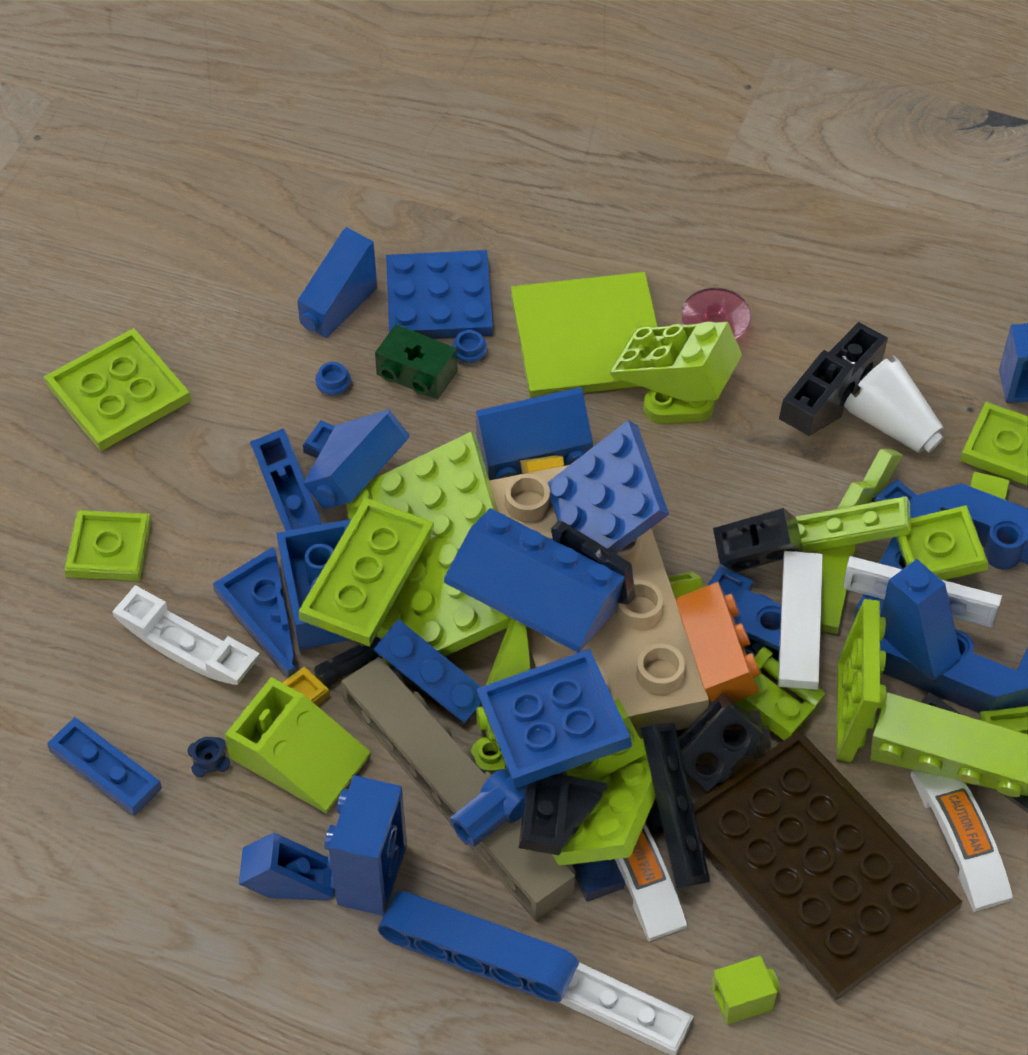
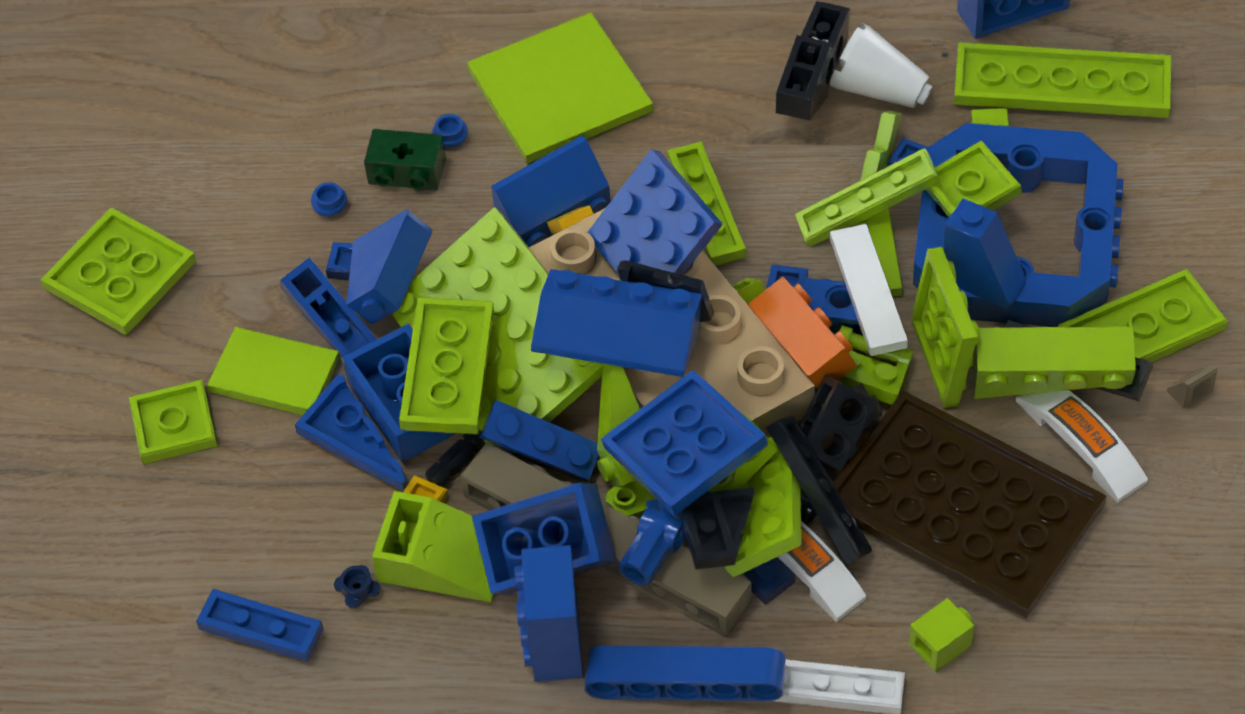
camera: 15 degrees left, 0 degrees up
(183, 641) = (288, 488): white slope -> none
(216, 525) = (273, 371): none -> lime tile
(285, 870) = (476, 663): blue slope -> none
(339, 284) = (300, 106): blue slope -> none
(408, 756) = (547, 520): none -> blue brick
(440, 293) = (398, 88): blue plate -> none
(667, 409) = (673, 126): lime plate -> none
(680, 360) = (661, 84): lime slope -> none
(682, 487) = (697, 170): none -> lime plate
(717, 306) = (676, 33): clear pink dish -> none
(757, 540) = (800, 229): black brick -> none
(965, 602) = (928, 231): white tile -> none

